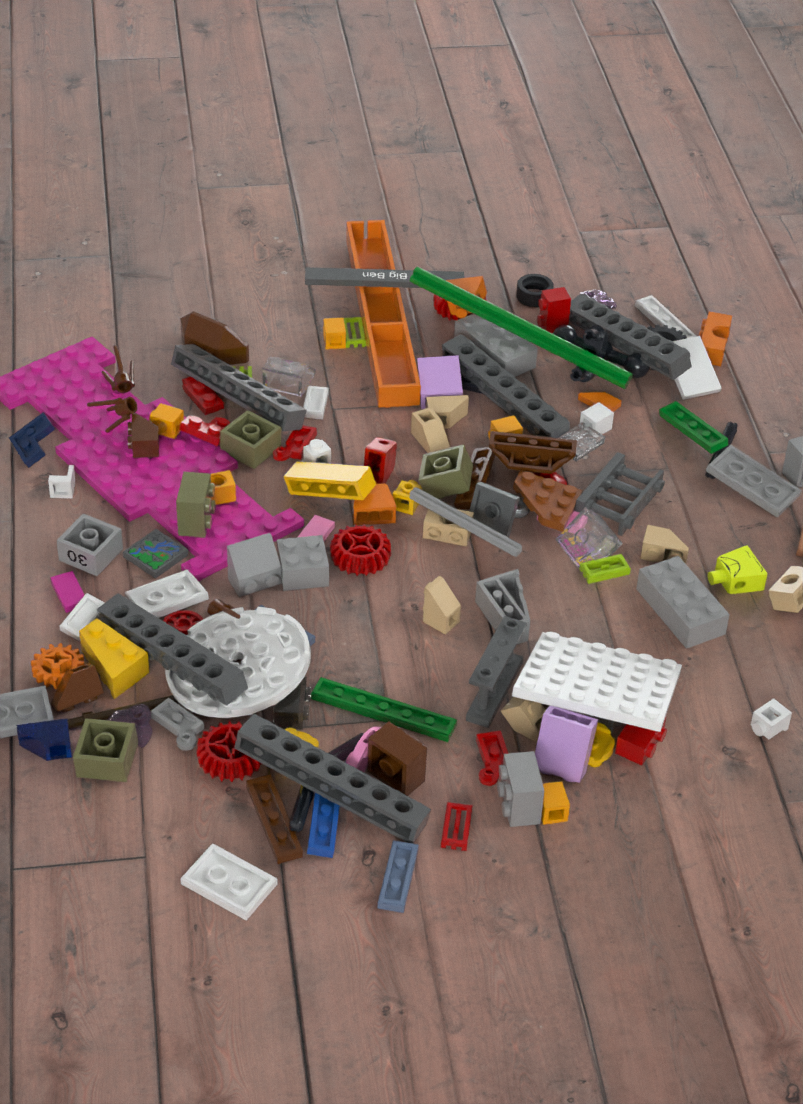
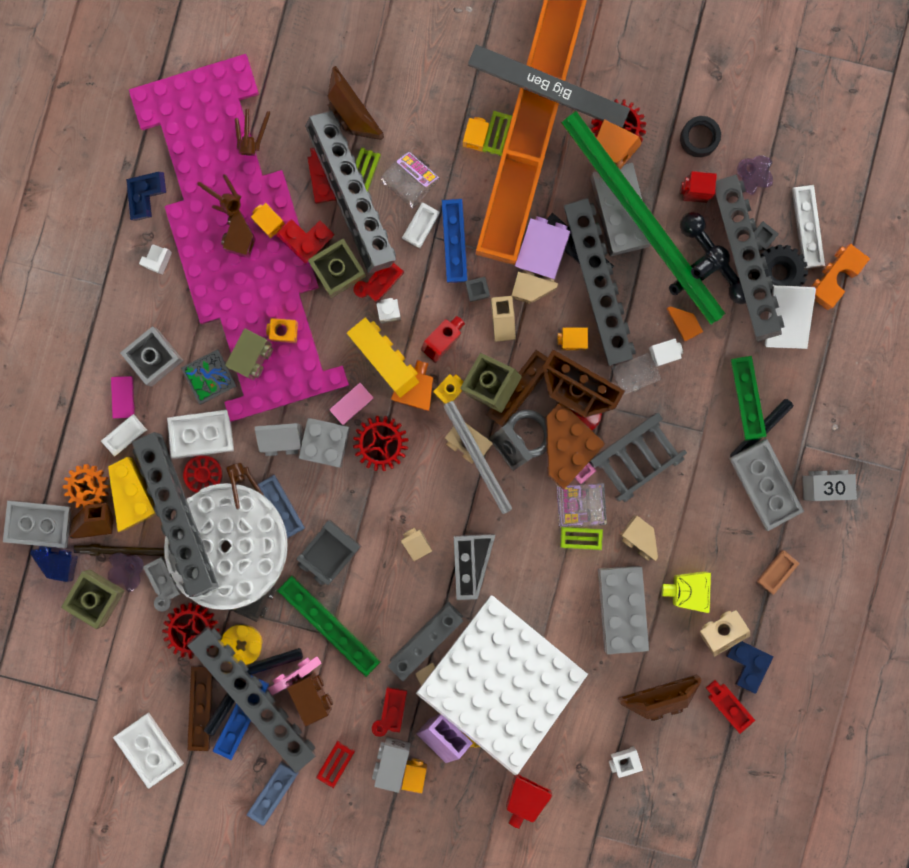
camera: 20 degrees right, 45 degrees up
(352, 645) = (328, 553): none -> dark grey panel
(353, 401) = (454, 240): none -> blue plate
(394, 425) = (477, 289): none -> dark grey plate
(686, 784) = (526, 800): none -> red torso
(767, 658) = (662, 699): none -> reddish brown wedge

